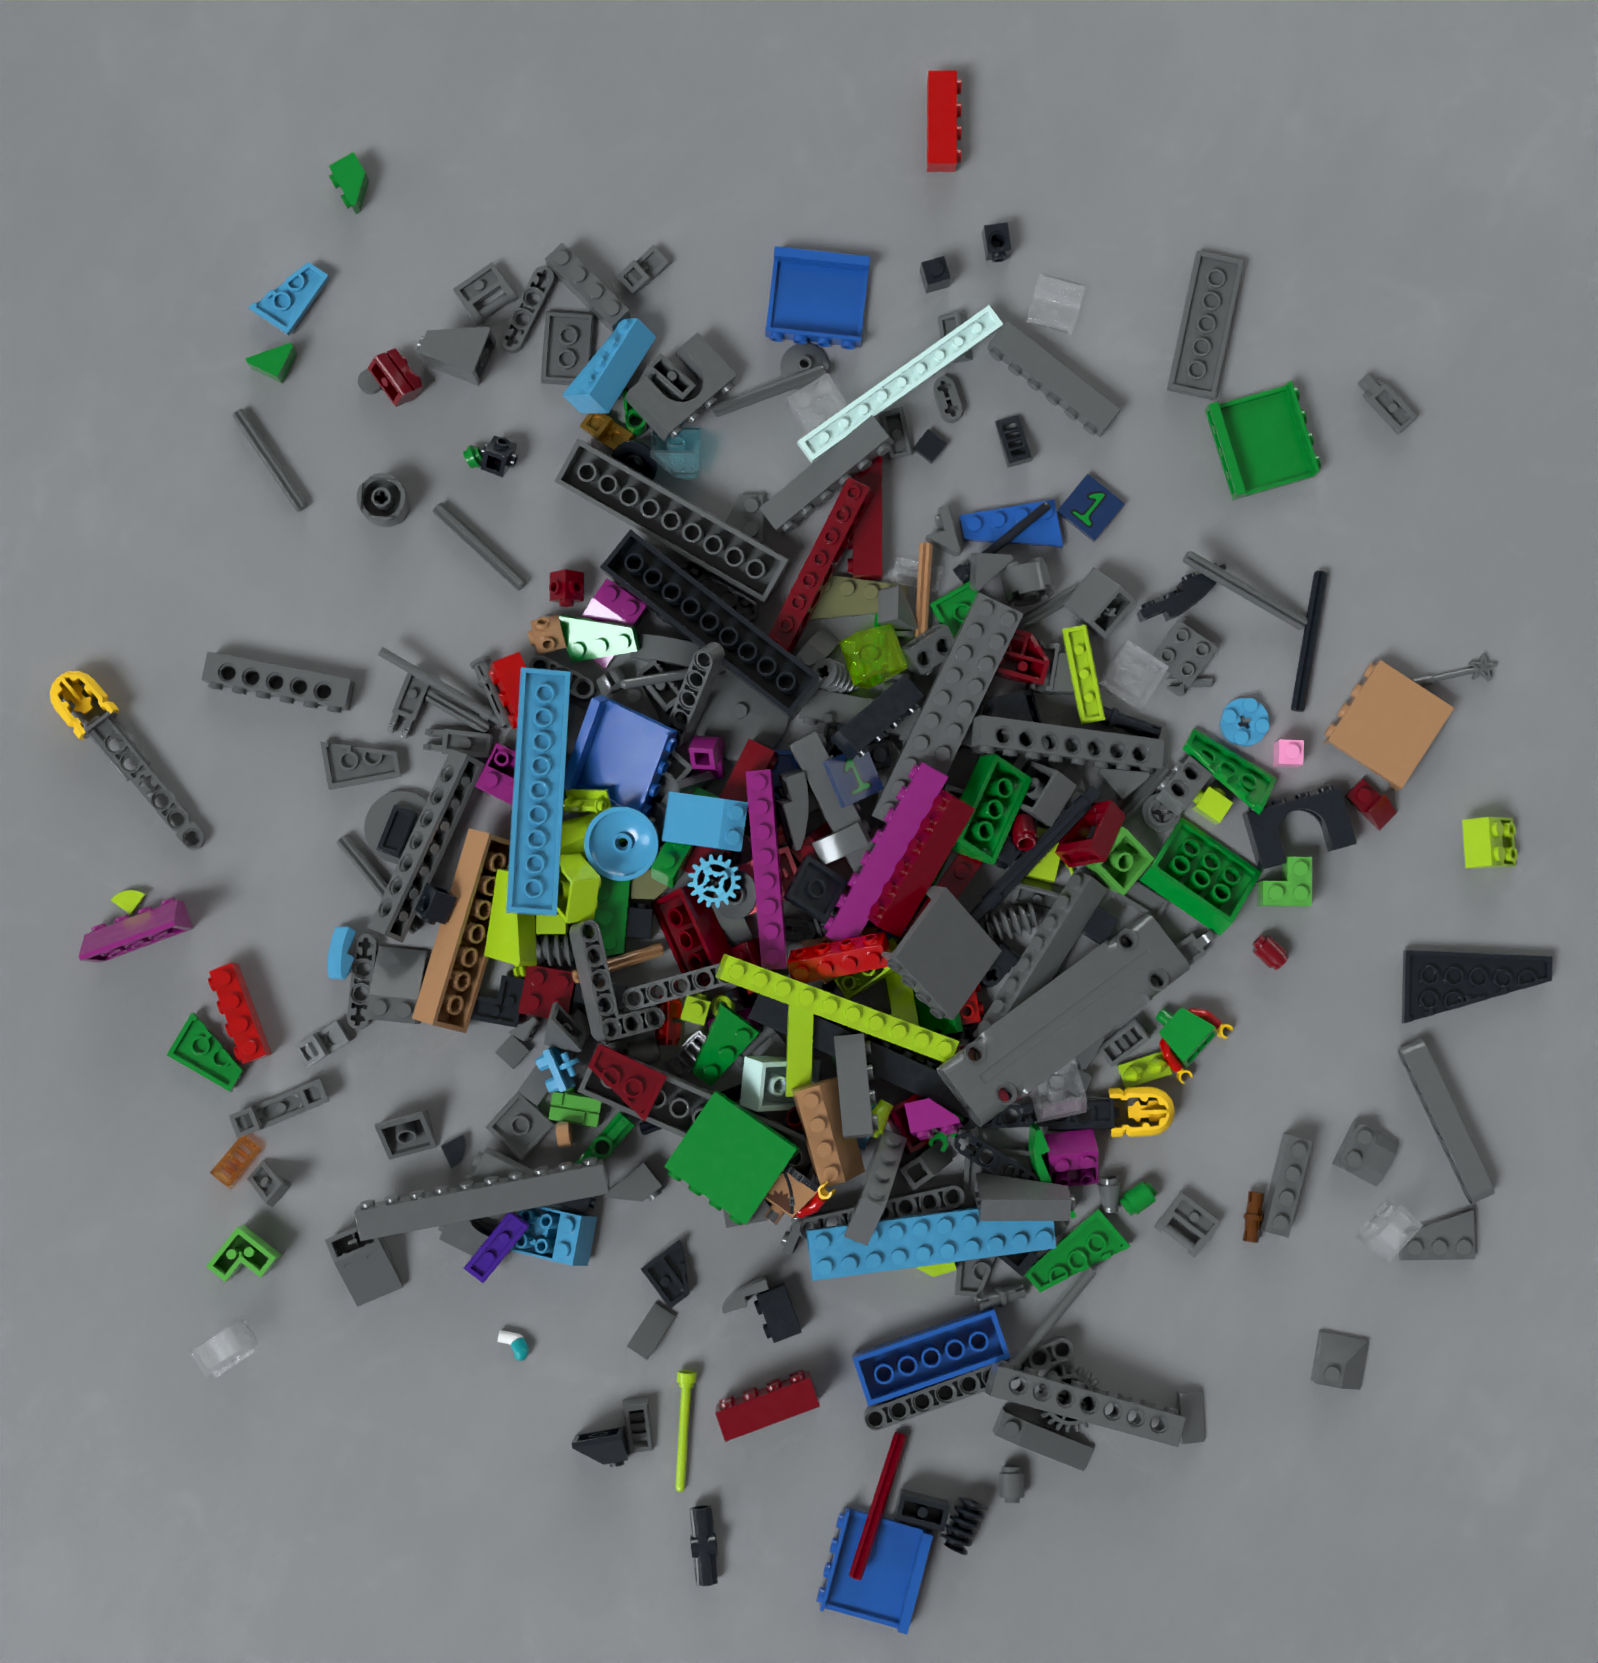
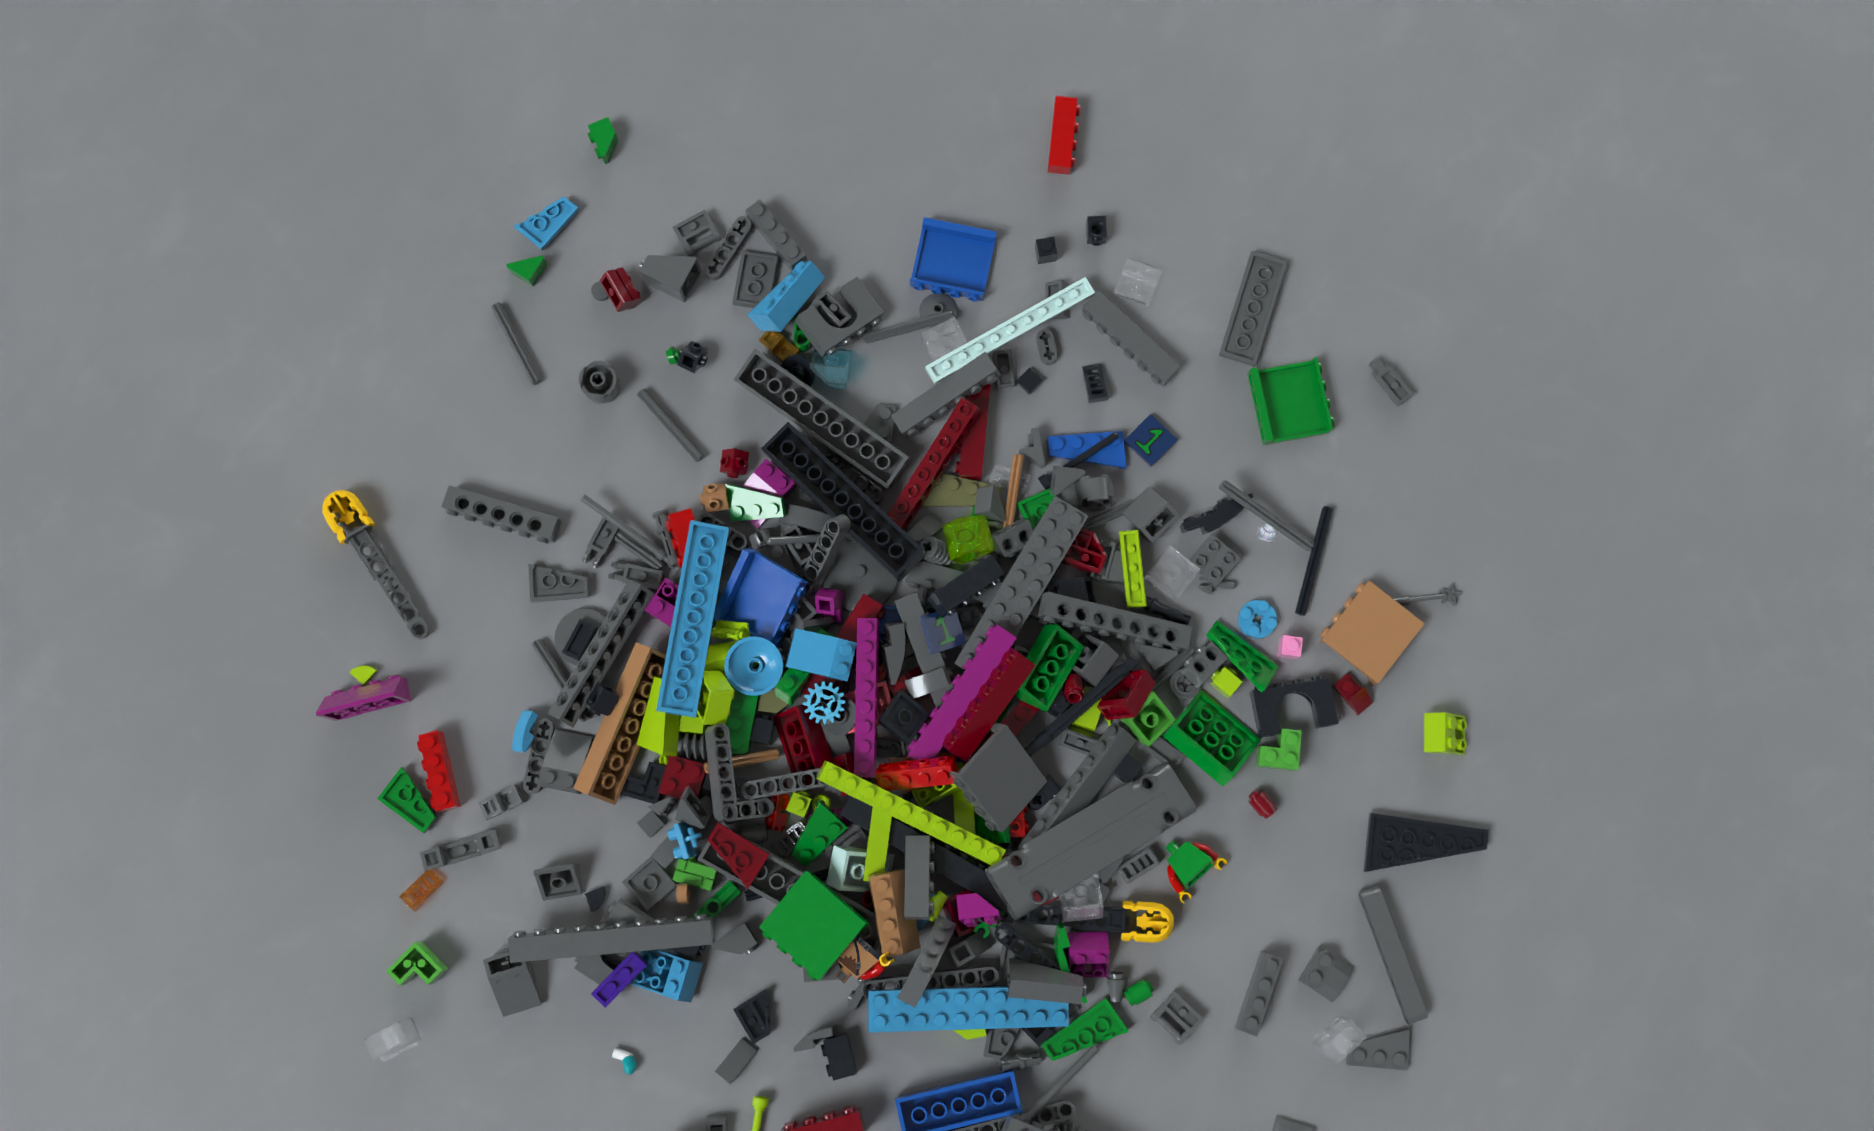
camera: 10 degrees right, 5 degrees down
(269, 1183) = (445, 910): dark grey slope -> none
(644, 270) = (822, 226): dark grey slope -> none
(741, 996) = (836, 796): black tile -> none
(1010, 923) = (1057, 760): dark grey piece -> none
(1143, 1070) = (1152, 888): lime tile -> none
(1192, 947) = (1200, 794): dark grey plate -> none
(1247, 612) = (1267, 533): none -> clear tile
(1253, 1217) = (1230, 1017): reddish brown pin -> none

